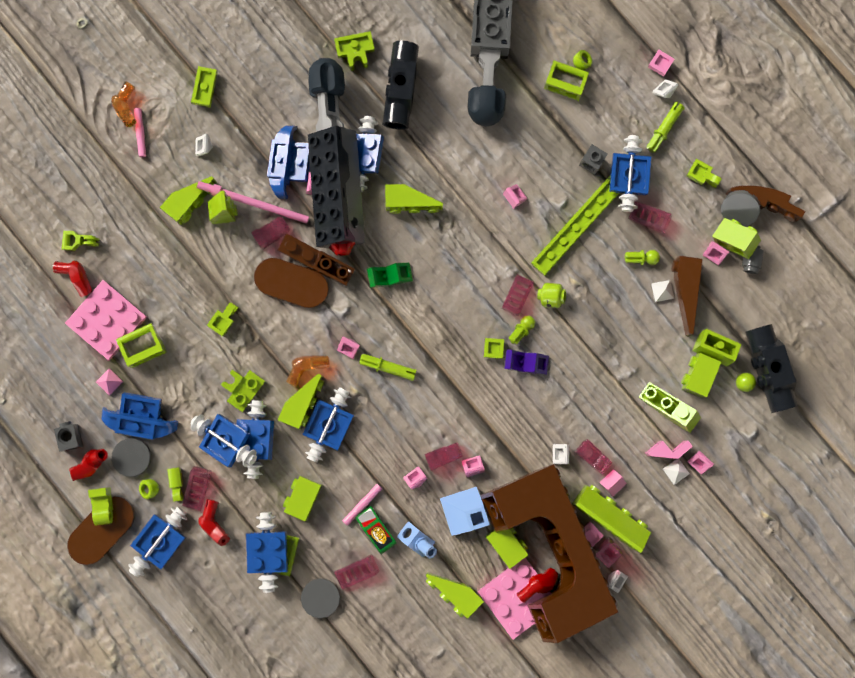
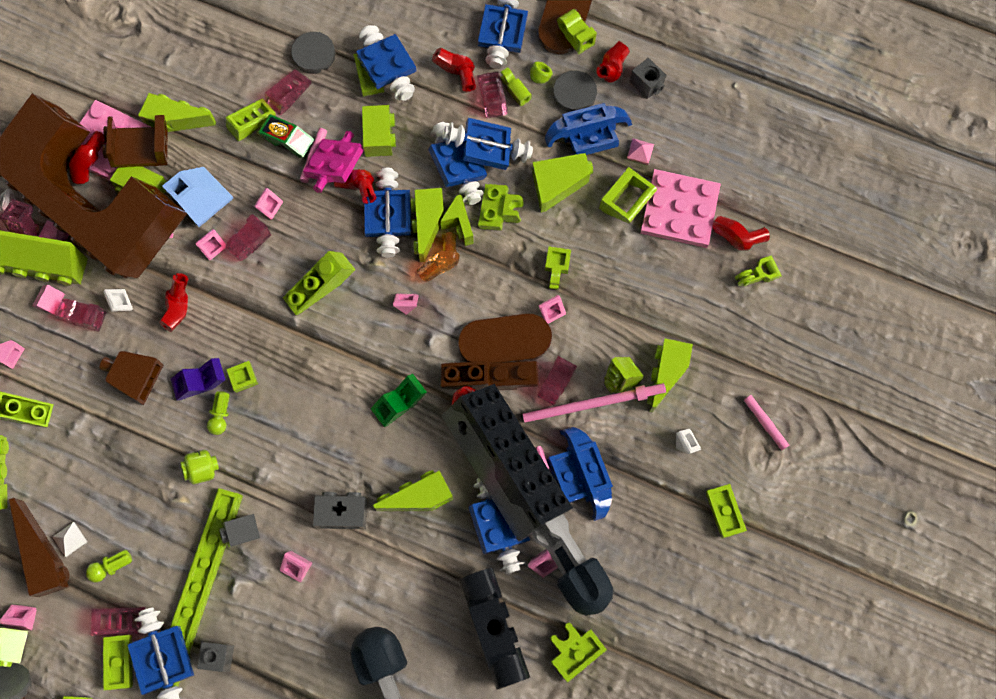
camera: 155 degrees right, 10 degrees down
(121, 105) = (802, 438): clear orange arm -> none
(184, 387) = (560, 178): none -> lime slope
(245, 288) = (552, 309): none -> bright pink slope
(276, 396) = (457, 217): none -> lime slope
(336, 460) = (361, 181): none -> red arm
(347, 114) = (543, 563): none -> bright pink slope
(349, 487) = (333, 161): none -> dark pink plate
(388, 367) = (352, 301): lime axle -> none
(405, 393) = (319, 281): none -> lime slope
(412, 556) = (245, 129): none -> lime slope
(418, 541) = (236, 143): light blue bracket -> none
(462, 206) = (352, 518): none -> dark grey brick
(494, 574) = (136, 145): none -> reddish brown panel
(511, 309) = (249, 449): clear pink slope -> none
(519, 428) = (176, 303): none -> red arm
(542, 234) = (239, 530): none -> dark grey brick
(573, 389) = (132, 374): none -> reddish brown torso
(660, 189) = (117, 663): none -> lime plate

